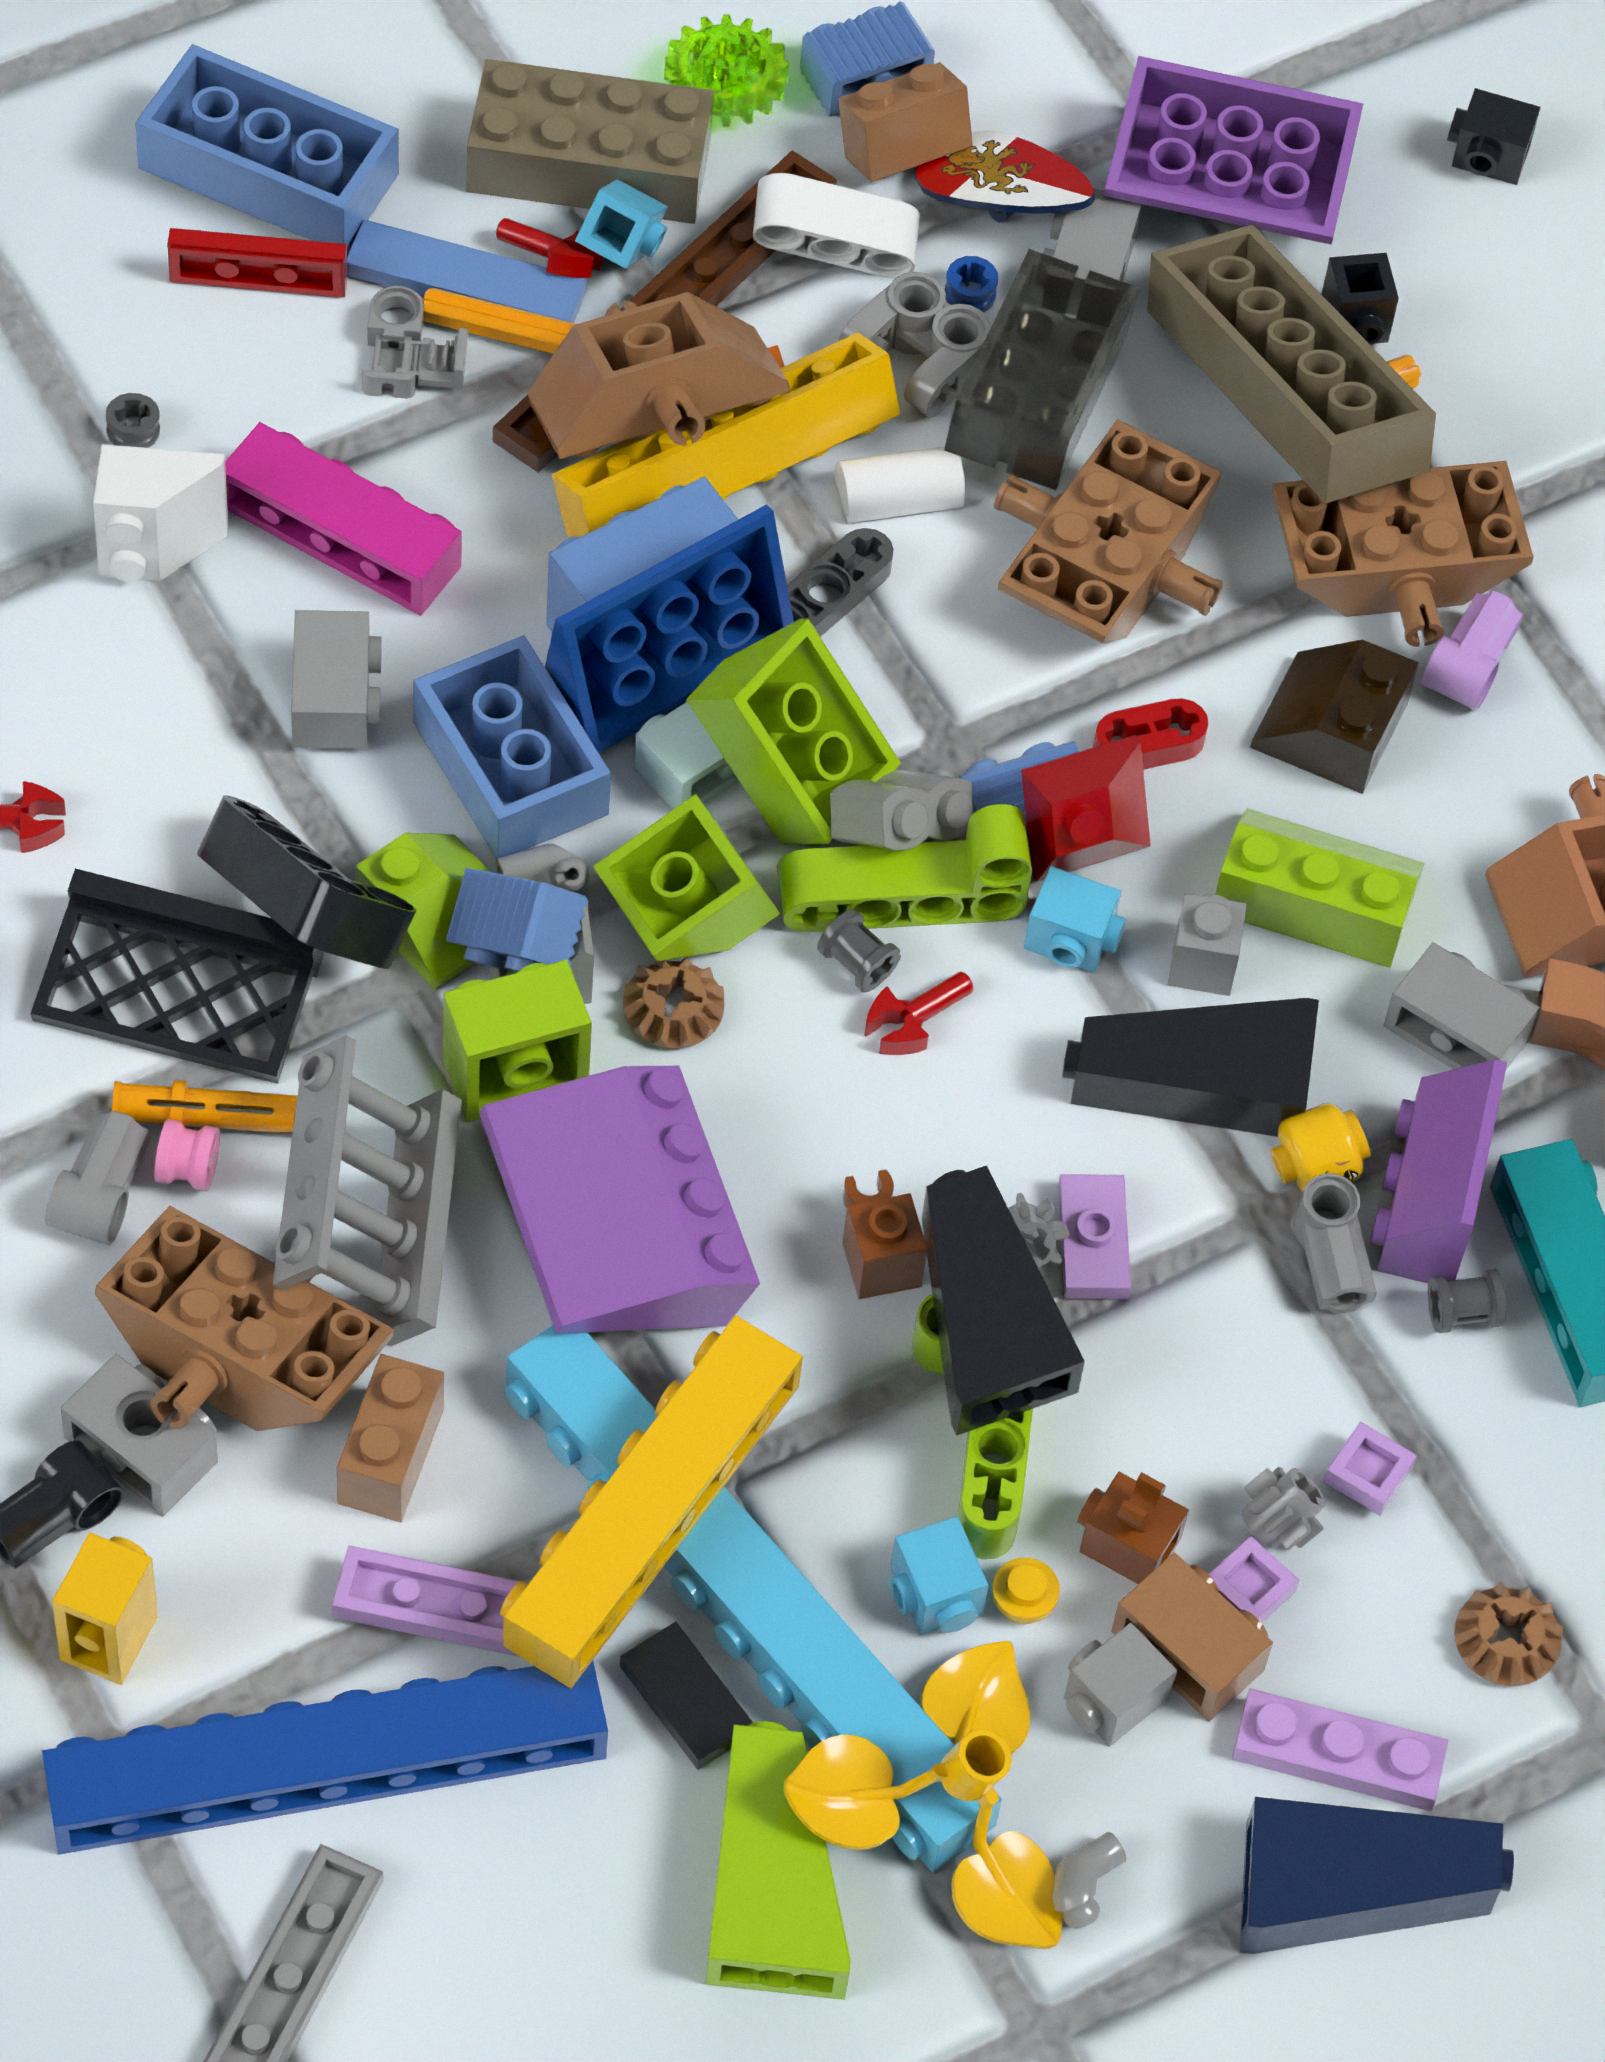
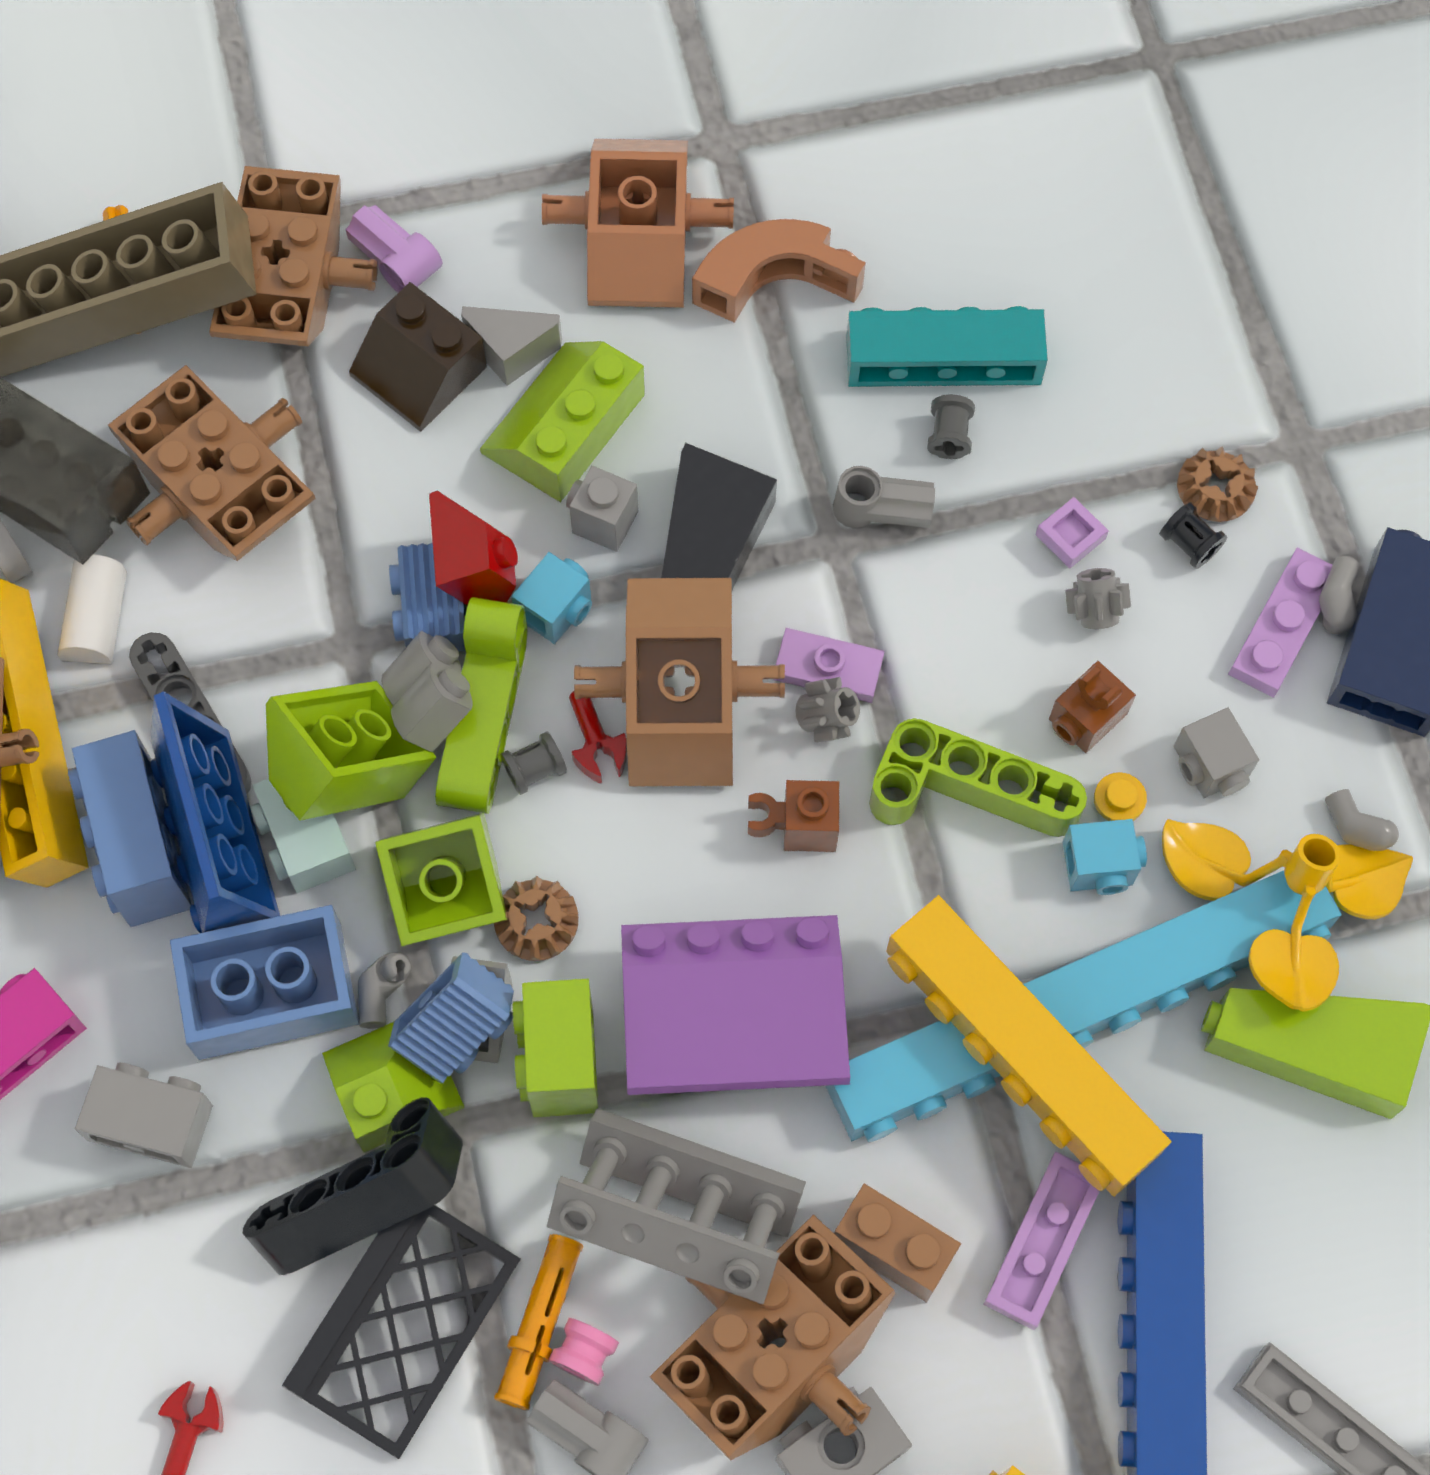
camera: 70 degrees left, 10 degrees up
(684, 1694) = (1162, 1066): black tile -> none
(993, 1311) = (910, 747): black slope -> none
(999, 1054) = (690, 735): none -> medium nougat slope
(1151, 726) = (383, 495): red beam -> none
(1198, 1633) = (1186, 689): medium nougat brick -> none
(1254, 1580) = (1149, 640): lavender plate -> none
(1318, 1144) = (803, 484): yellow head -> none
(1363, 293) = (44, 214): black brick -> none
(1393, 1788) = (1337, 596): none -> light grey arm
(1396, 801) = (514, 339): none -> light grey slope
(1417, 1610) = (1193, 535): none -> black bush
(1438, 1173) = (851, 403): medium lavender slope -> none
(1459, 1011) = (712, 355): light grey brick -> none

